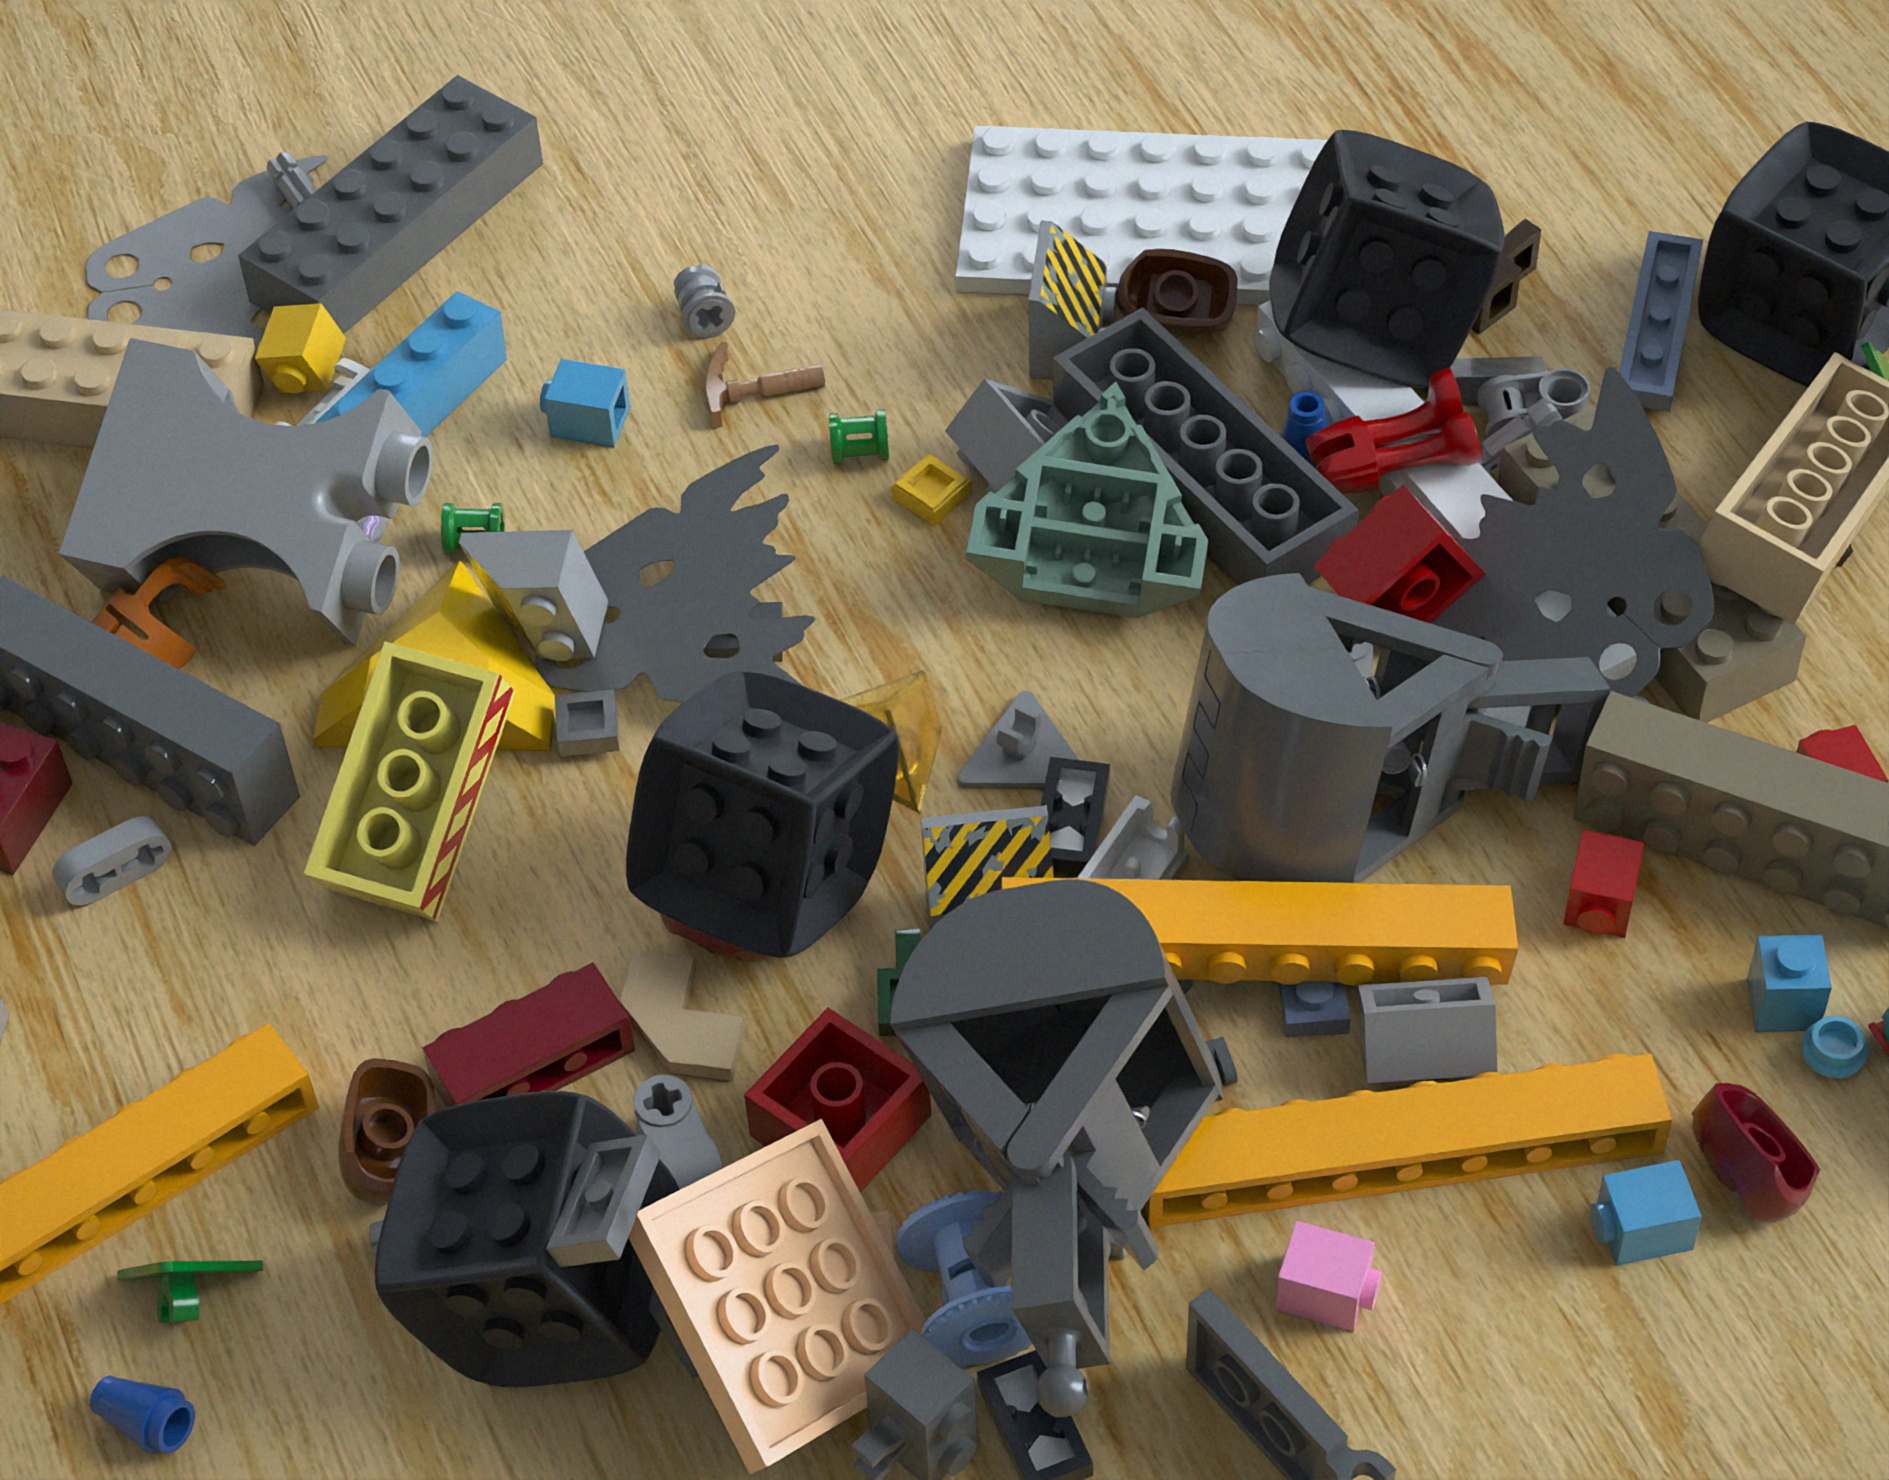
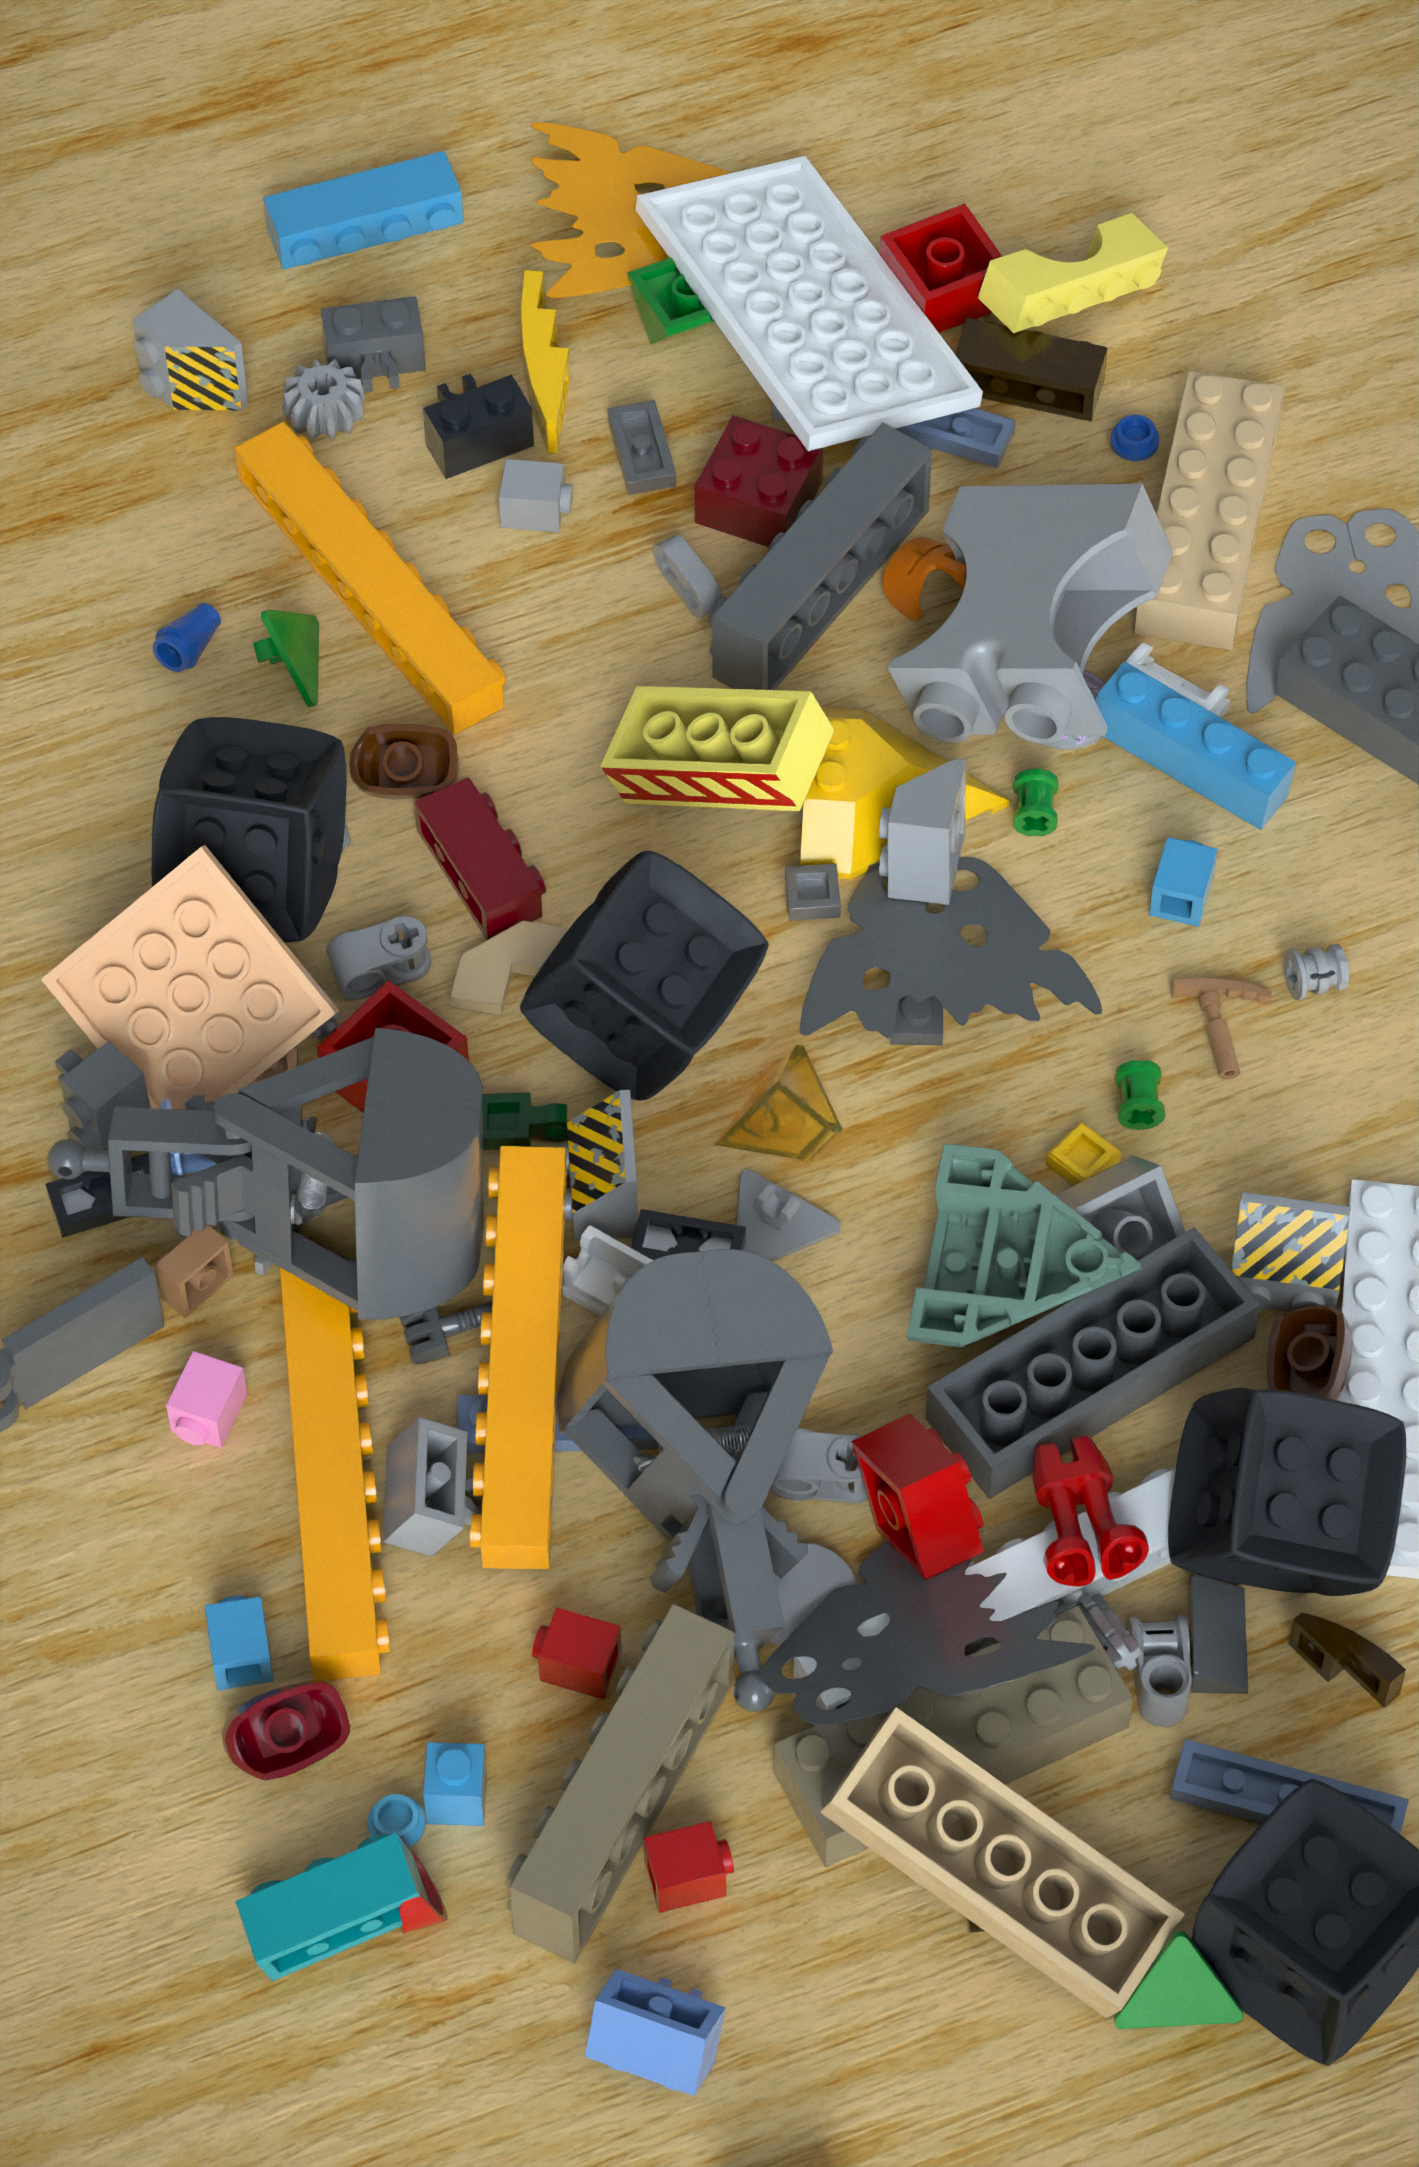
camera: 90 degrees right, 5 degrees up
(300, 348) = (1245, 659): yellow brick -> none
(604, 1201) = (210, 825): flat silver plate -> none
(1148, 1304) = (194, 1270): none -> medium nougat piece
(1303, 418) = (1128, 1456): blue cone -> none

